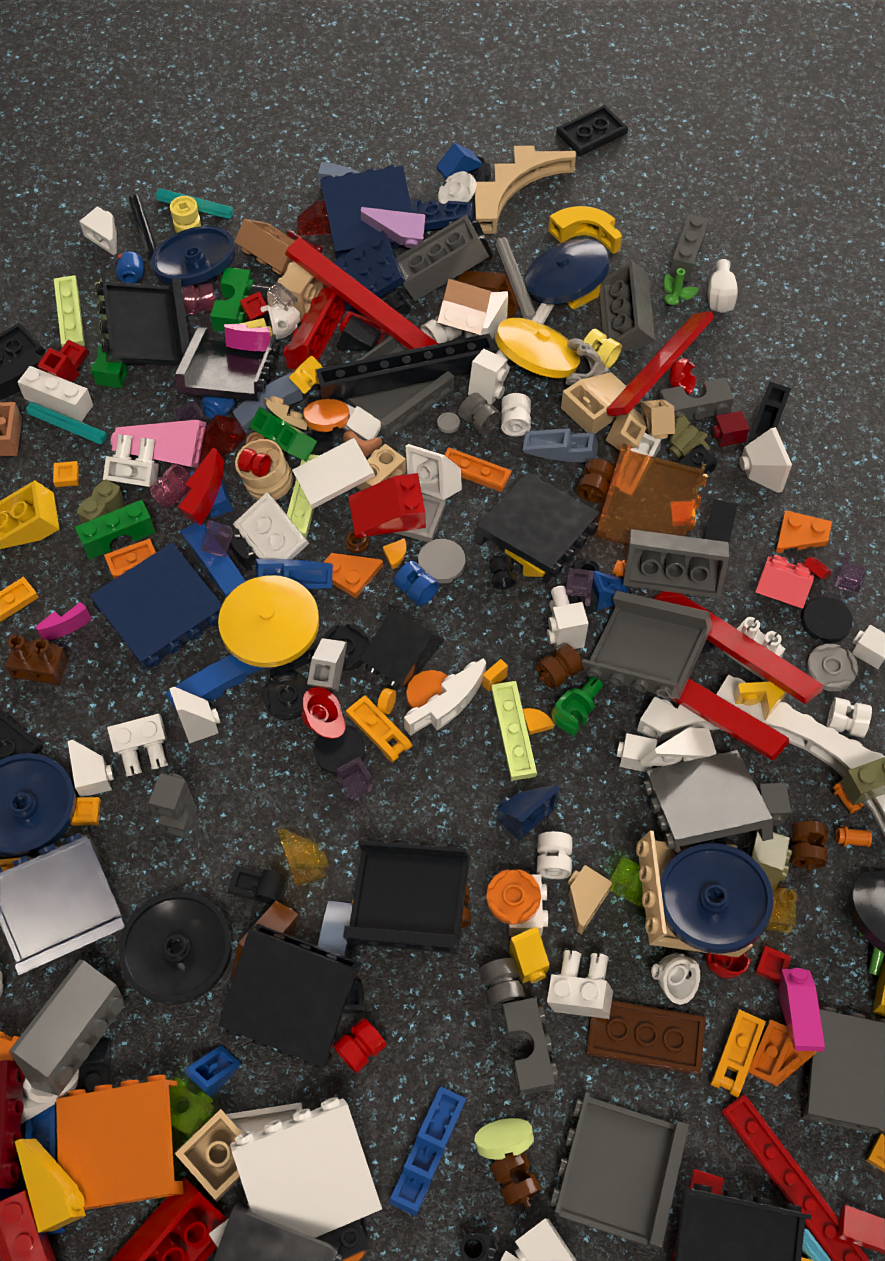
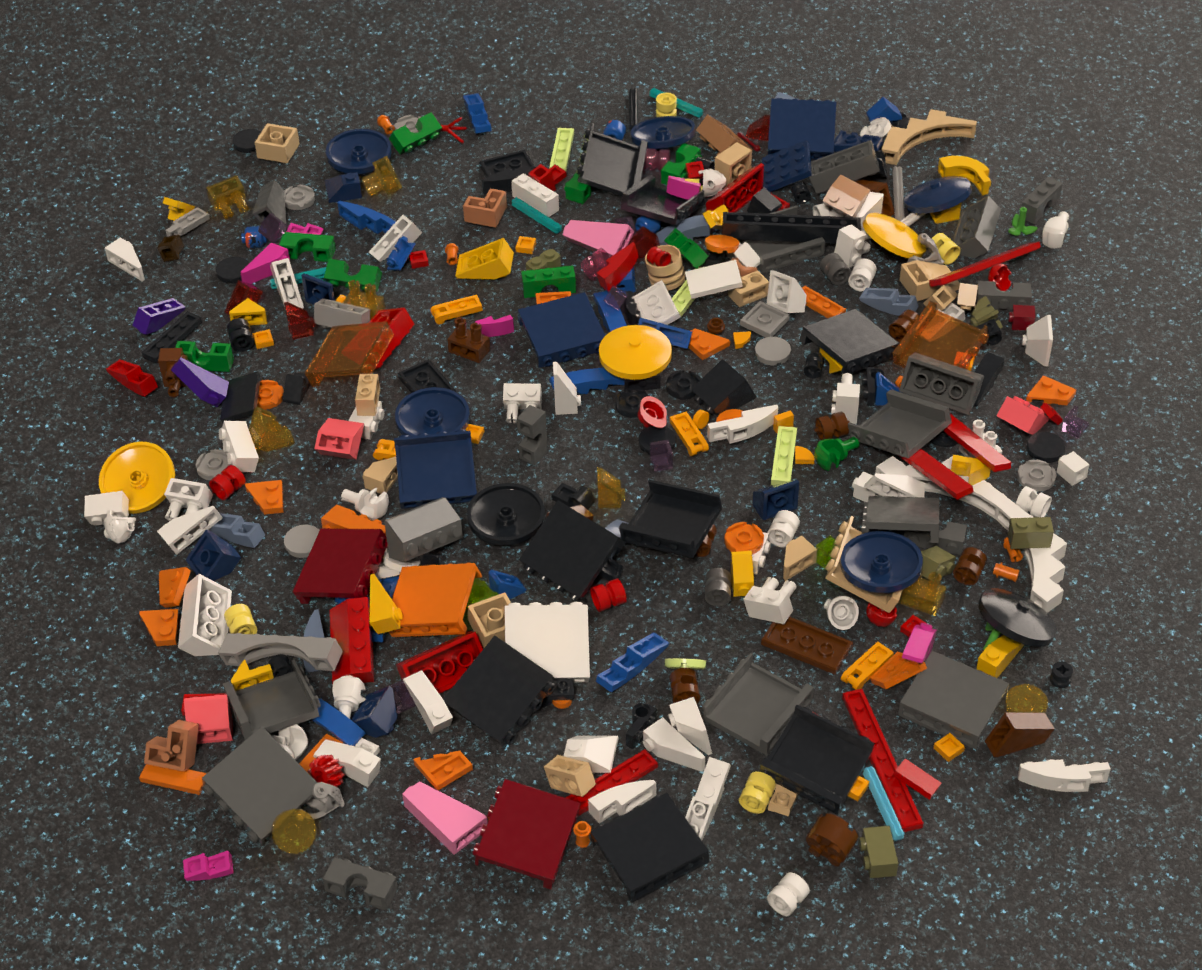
camera: 20 degrees right, 15 degrees down
(89, 770) = (483, 410): white slope -> none
(100, 229) = (602, 104): white slope -> none
(125, 470) = (570, 248): white brick -> none
(279, 408) = (688, 231): tan slope -> none
(280, 297) = (714, 164): clear slope -> none
(327, 664) = (666, 387): light grey slope -> none
(357, 295) = (769, 173): red tile -> none
(388, 507) = (746, 307): red slope -> none
(399, 226) = (820, 140): lavender slope -> none
(416, 583) = (748, 357): blue wheel -> none
(448, 422) = (811, 272): light grey piece -> none
(525, 1020) = (721, 638): dark grey arch -> none
(580, 584) = (864, 374): clear purple panel -> none
(592, 130) = (999, 113): black tile -> none
(770, 410) = (1062, 311): black slope -> none

